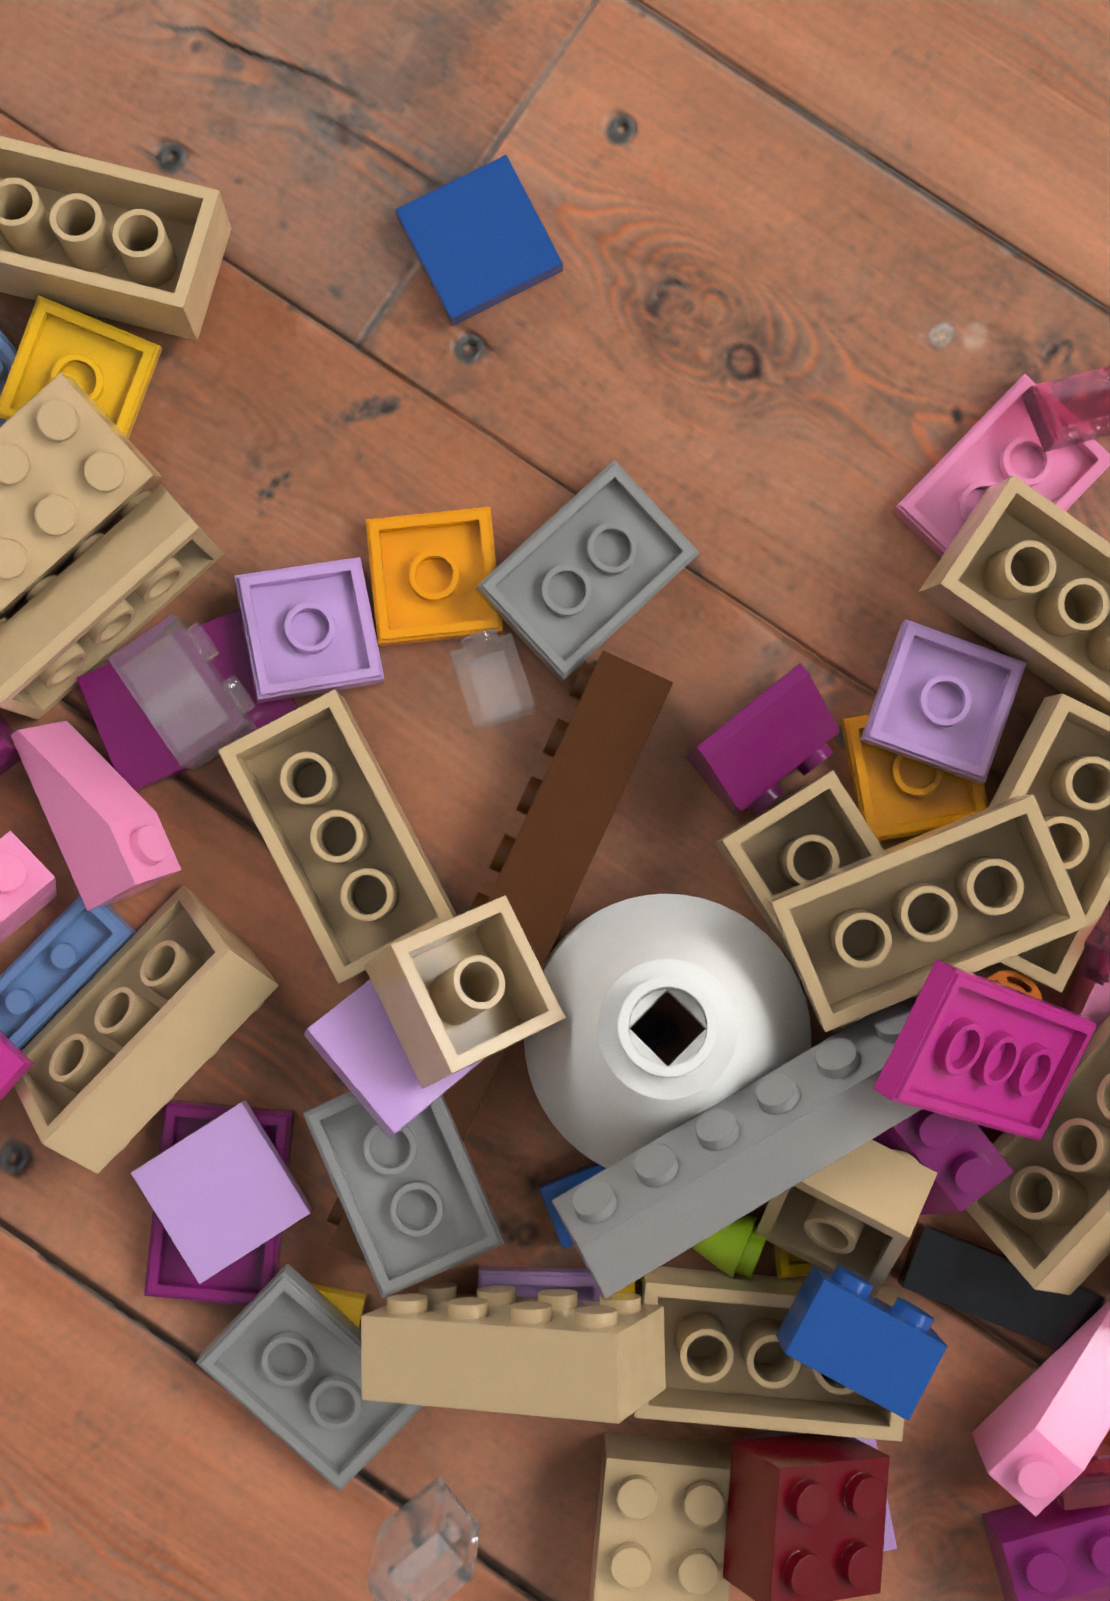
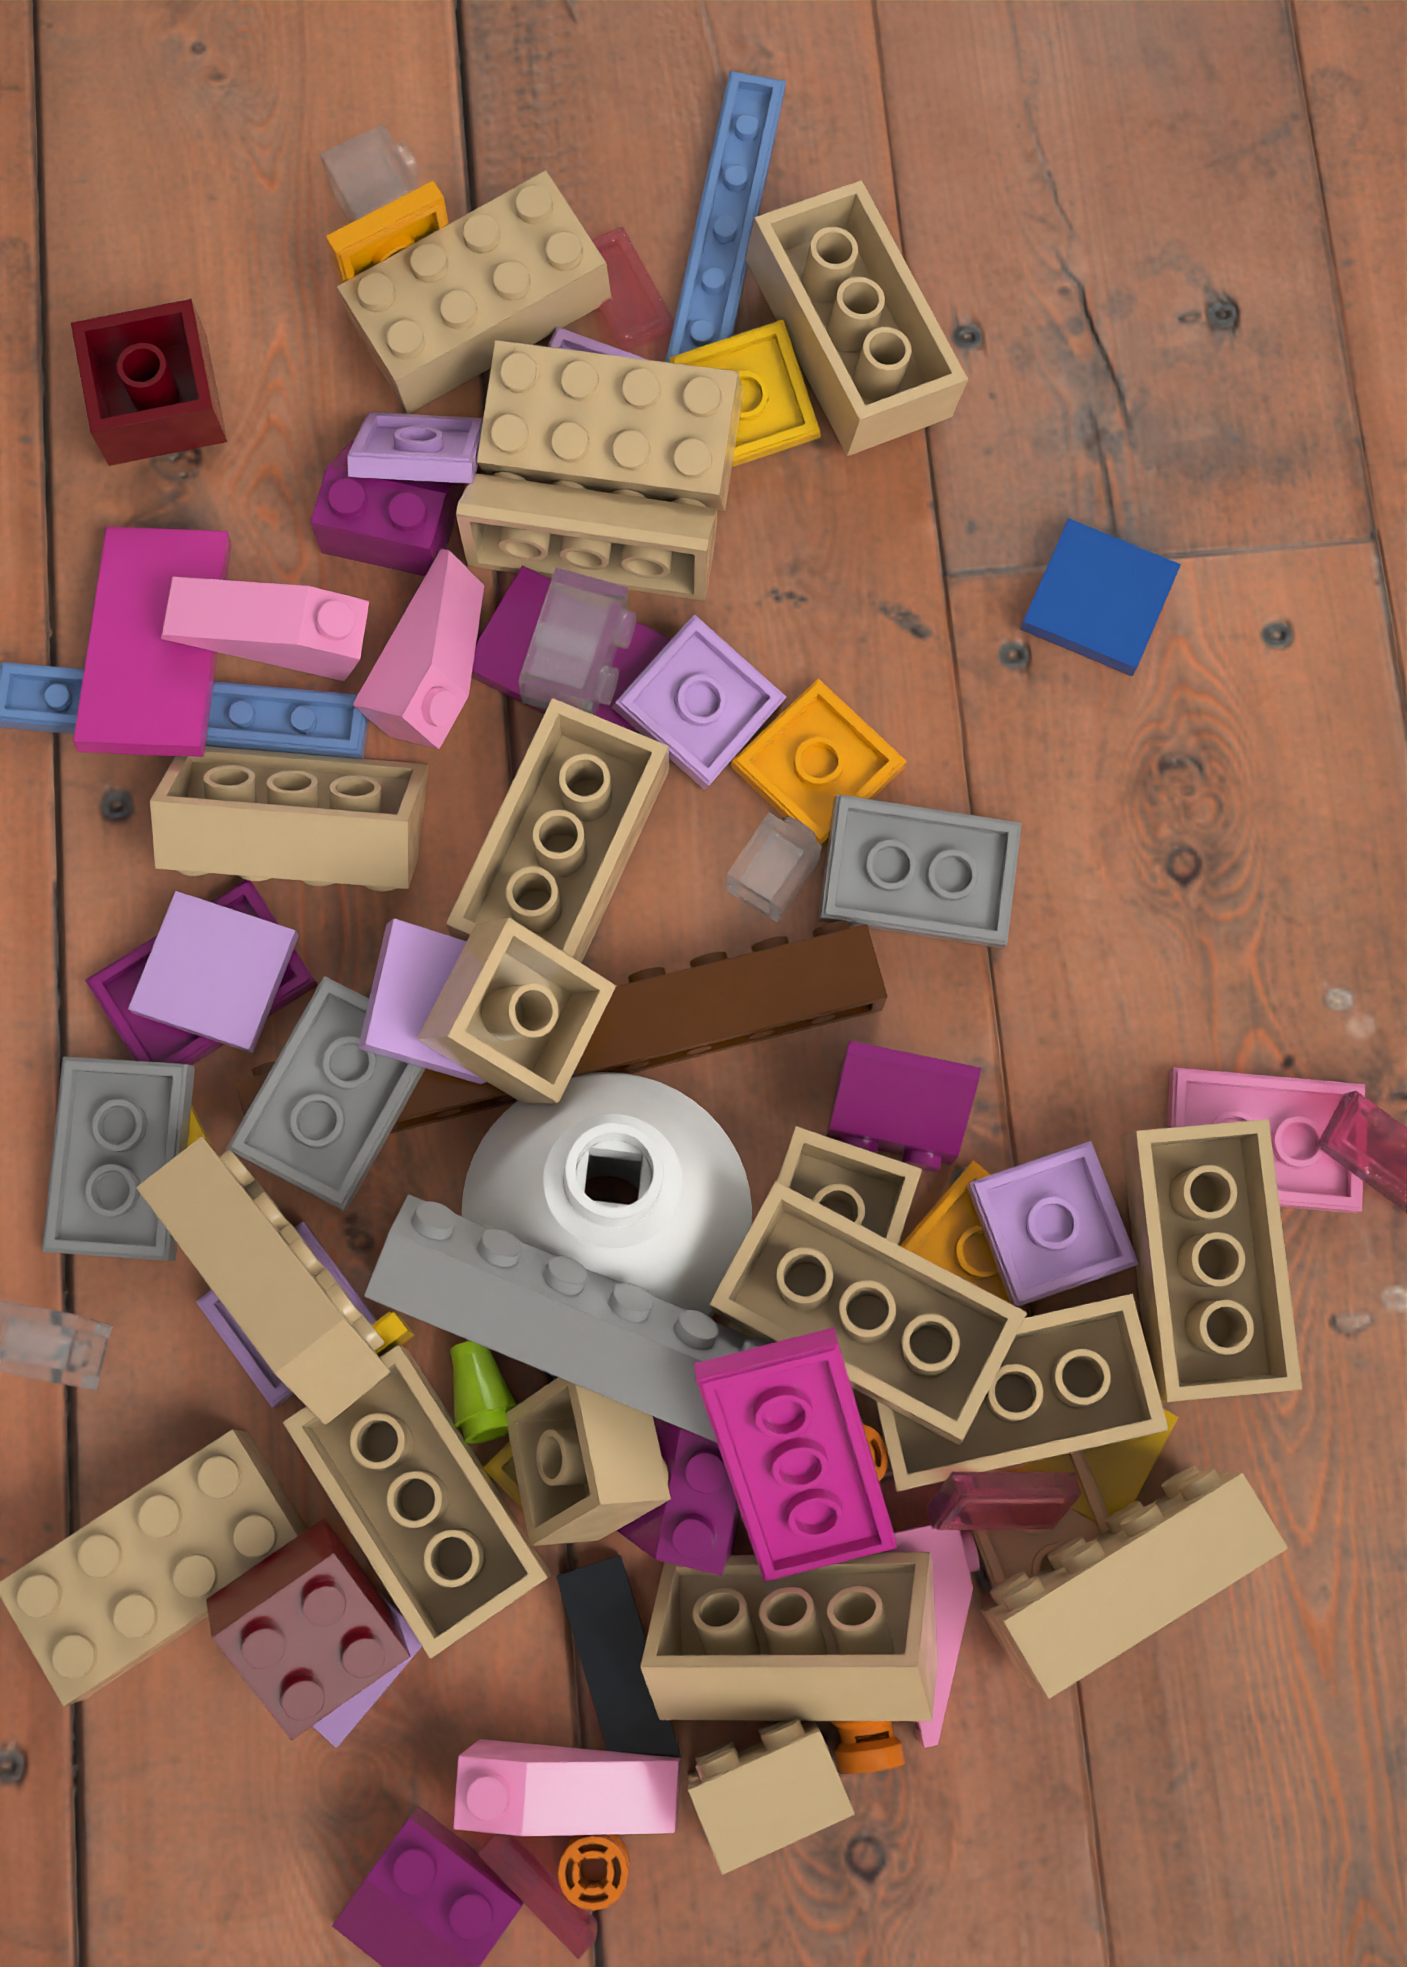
camera: 50 degrees right, 10 degrees down
(861, 1340) = (489, 1546): blue brick -> none

